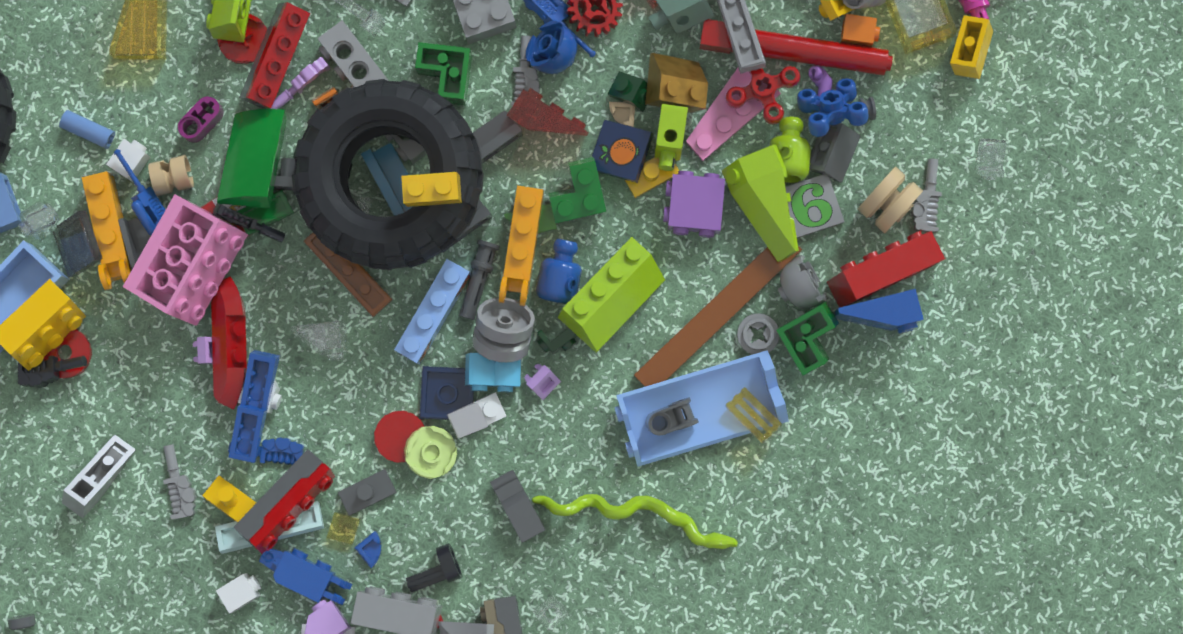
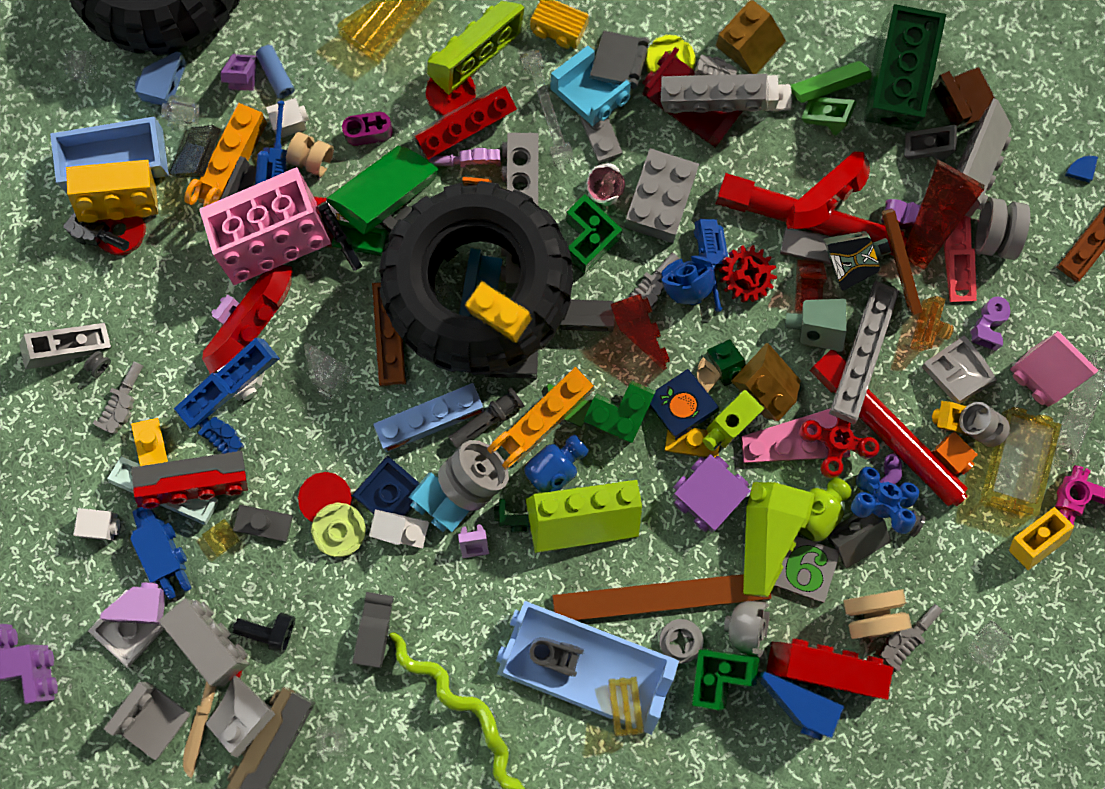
camera: 30 degrees right, 5 degrees down
(59, 150) = (240, 72): none -> medium lavender slope
(136, 470) = (97, 364): none -> dark grey bush
(370, 549) = (228, 571): blue tile -> none
(427, 21) = (605, 184): none -> clear pink hair

